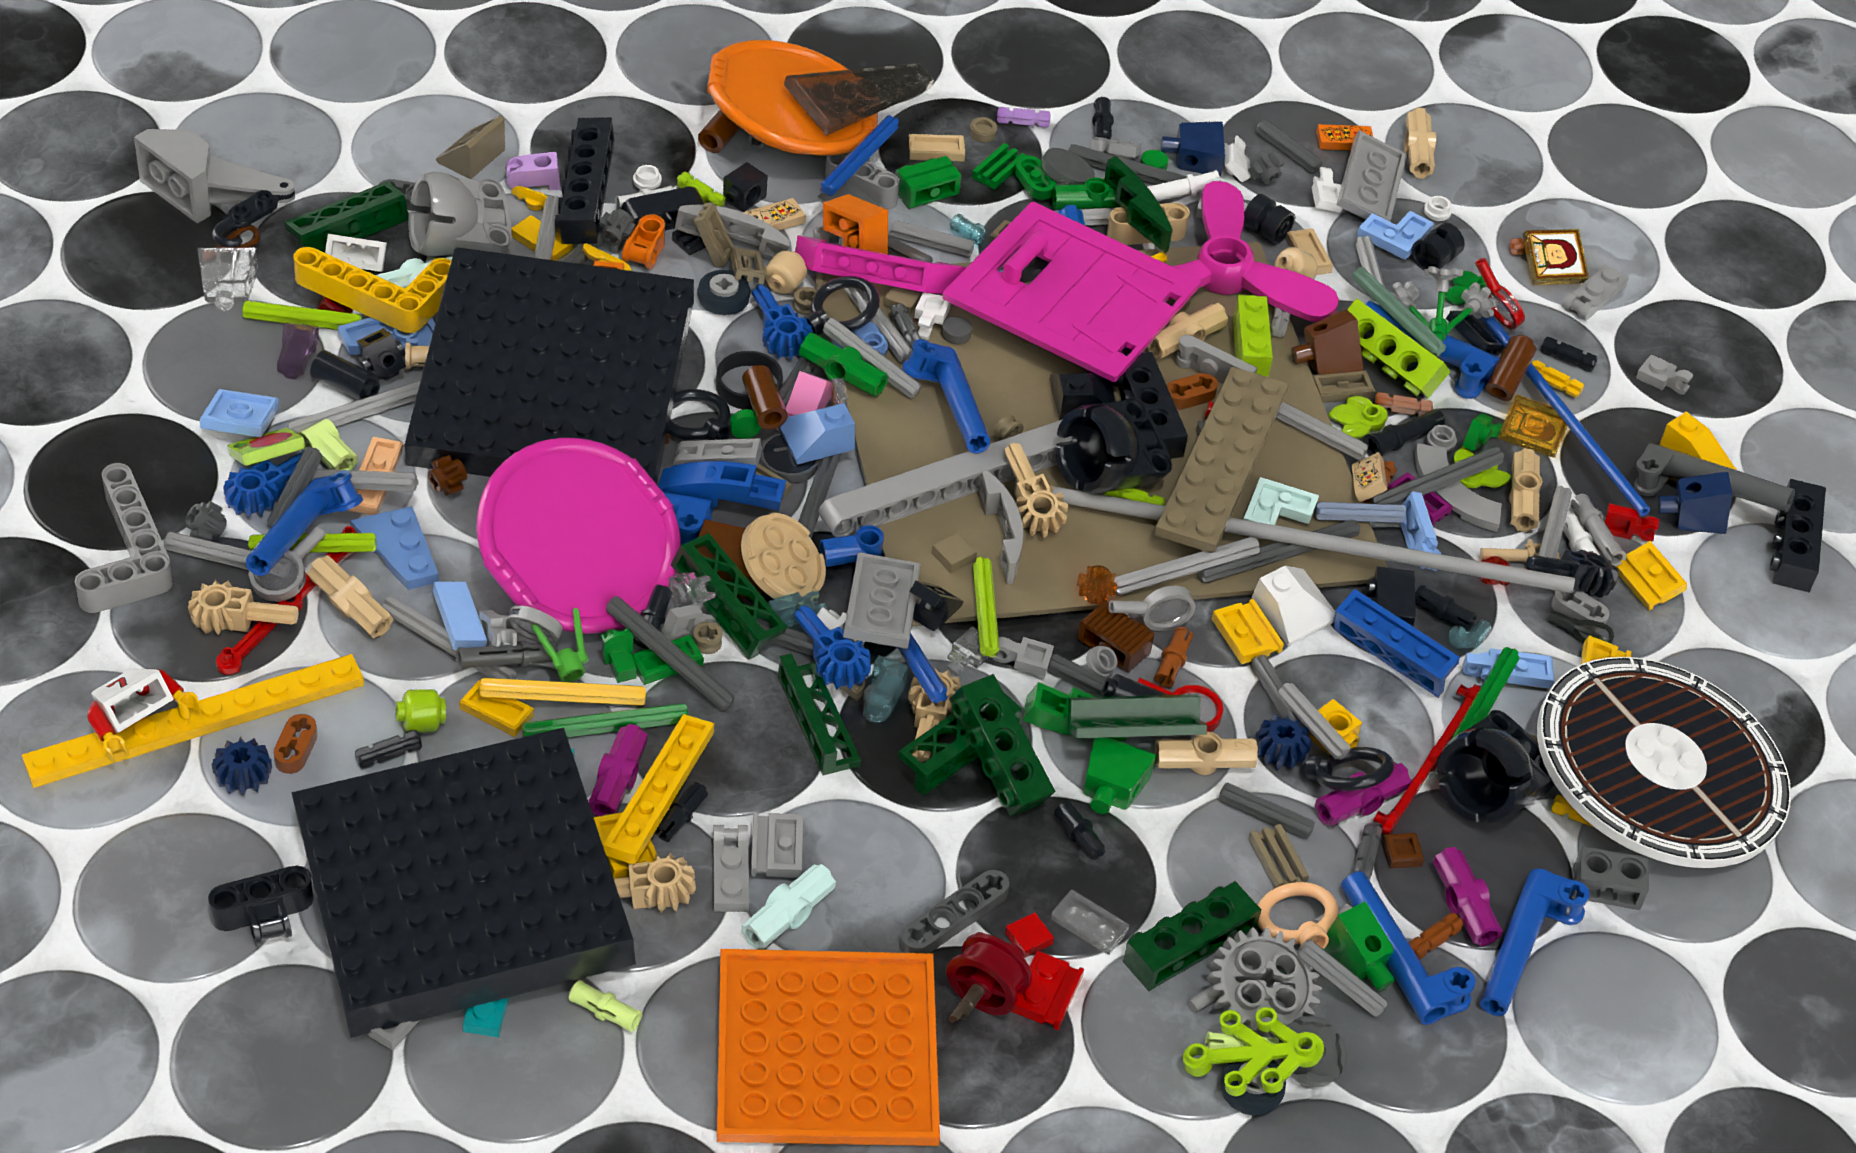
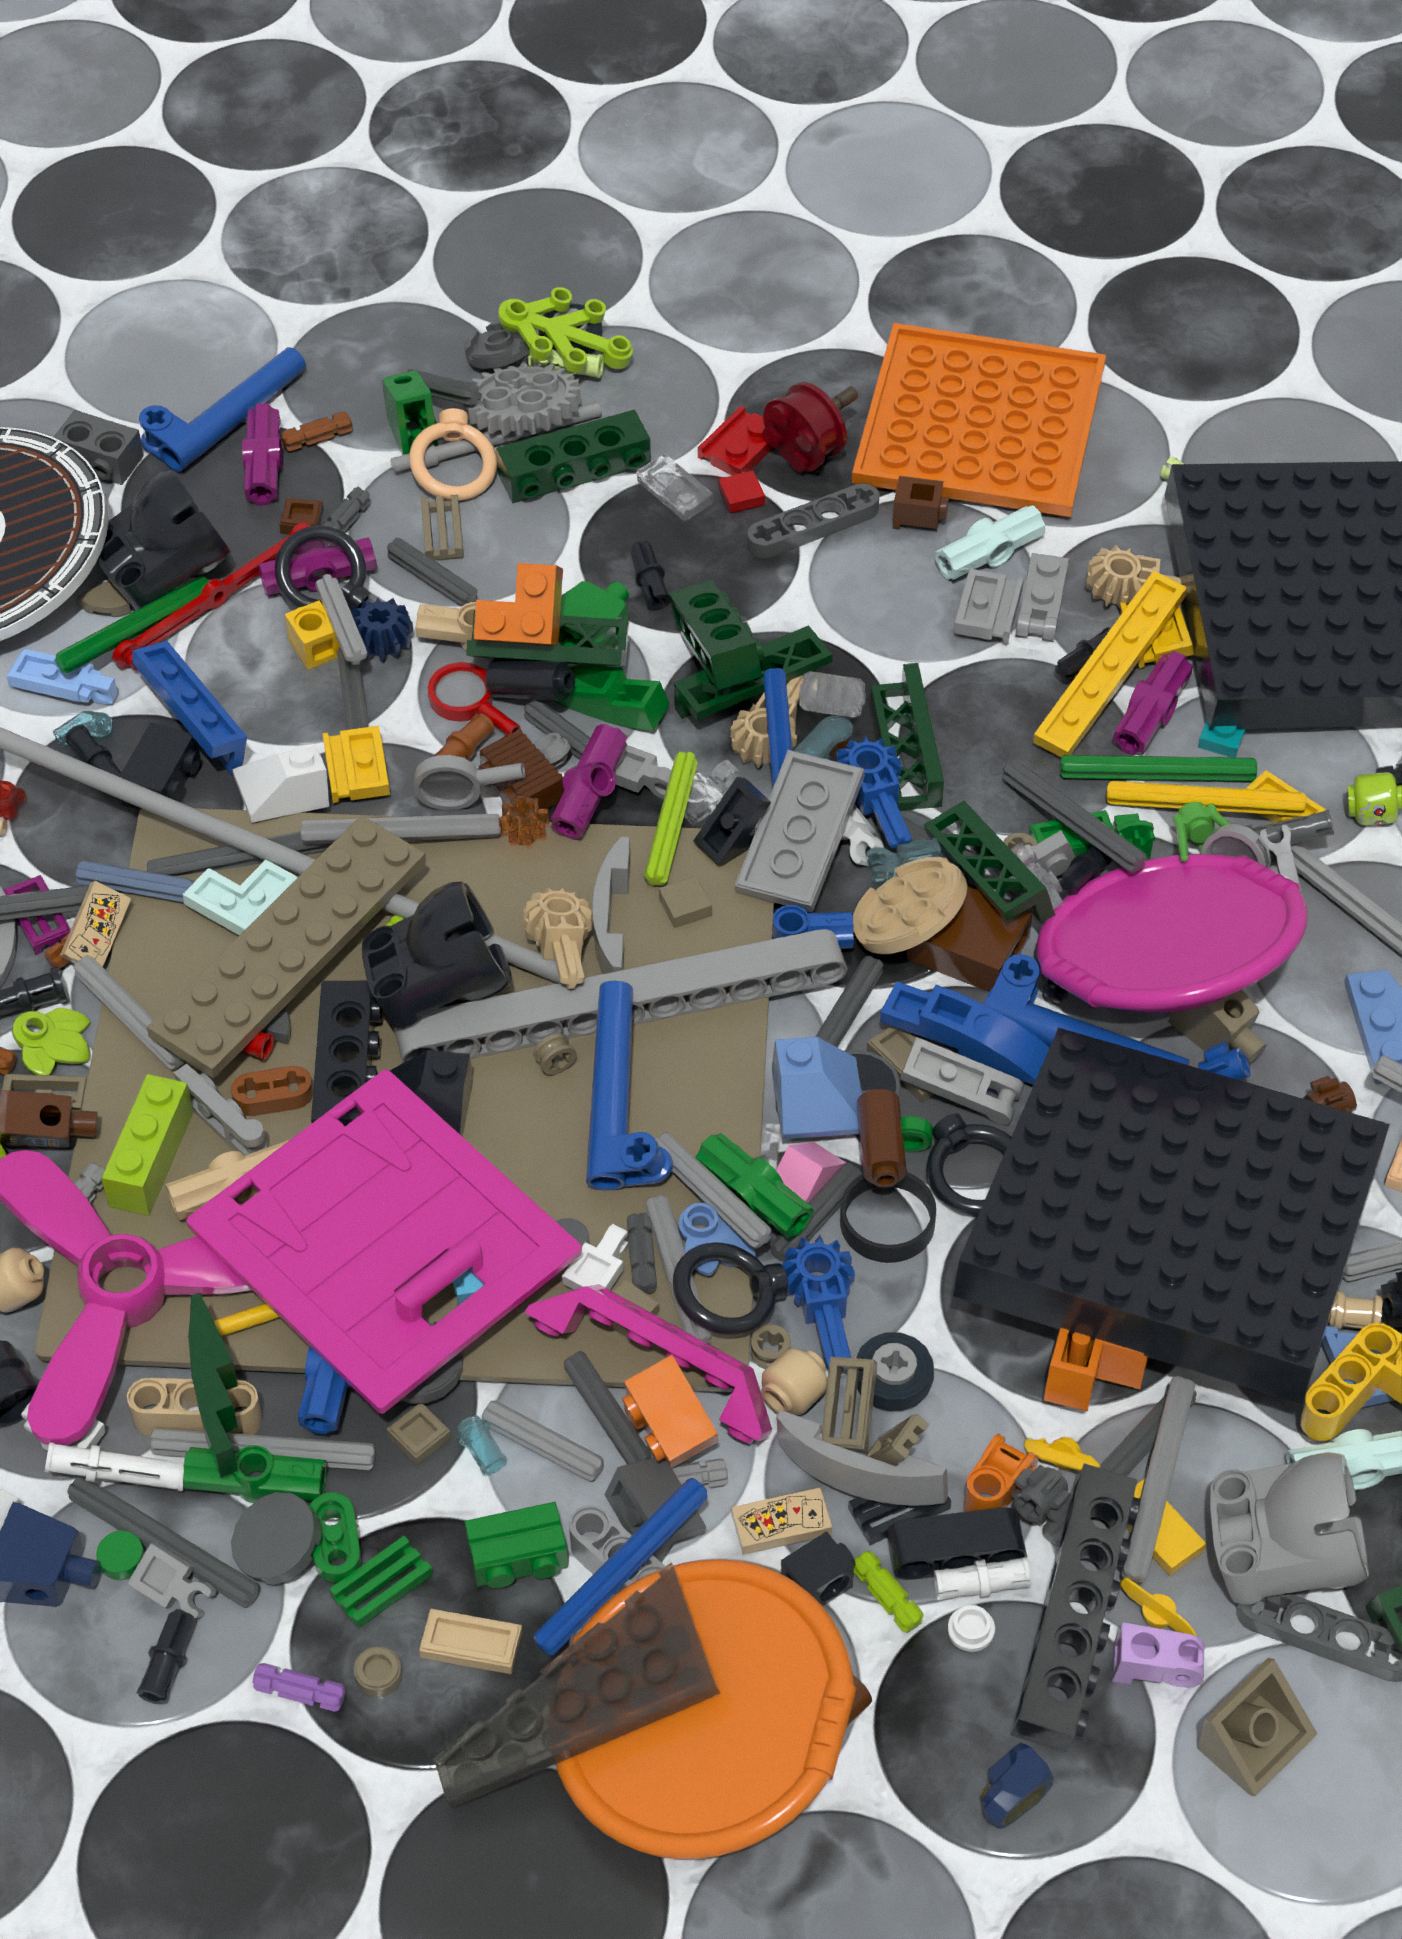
camera: 160 degrees left, 5 degrees up
(459, 615) = (1326, 906): light blue tile -> none
(608, 104) = (1015, 1785): none -> dark blue rock
(862, 930) = (919, 503): none -> reddish brown brick
(898, 714) = (832, 694): none -> clear gear
(1058, 618) = (589, 781): none -> magenta piece
(1163, 706) = (533, 615): none -> orange brick
(1418, 526) = (70, 847): light blue hinge -> none
(1428, 995) = (356, 375): blue axle -> none

